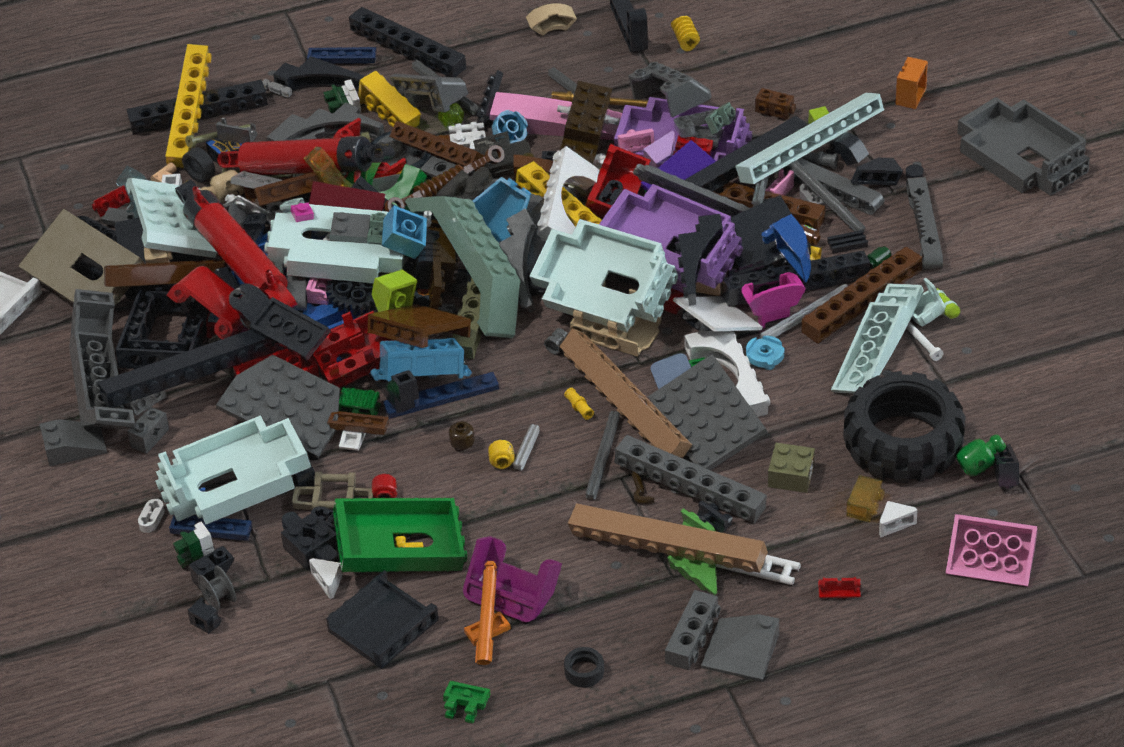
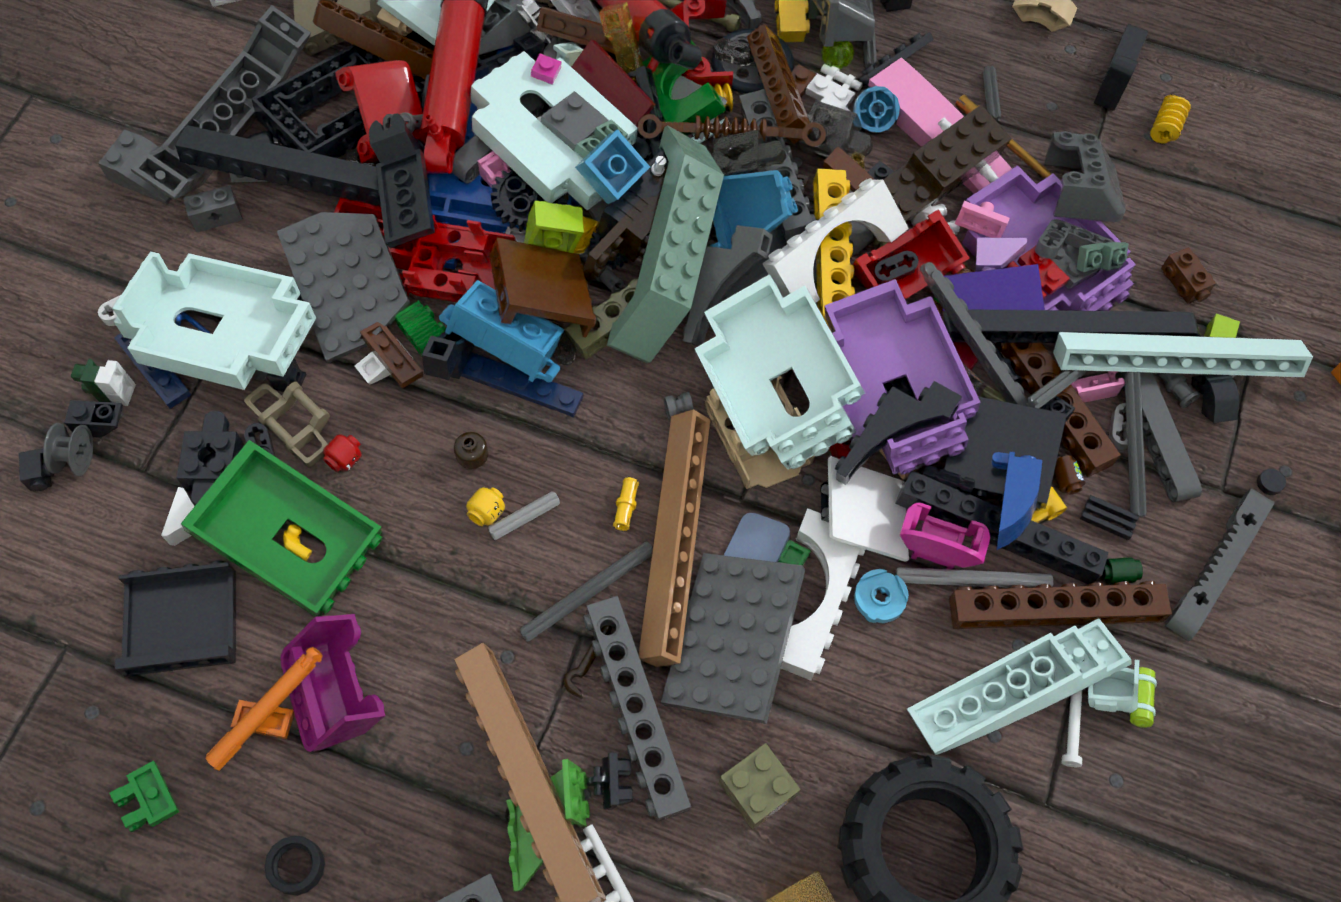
camera: 35 degrees right, 20 degrees up
(878, 172) = (1228, 456): black slope -> none

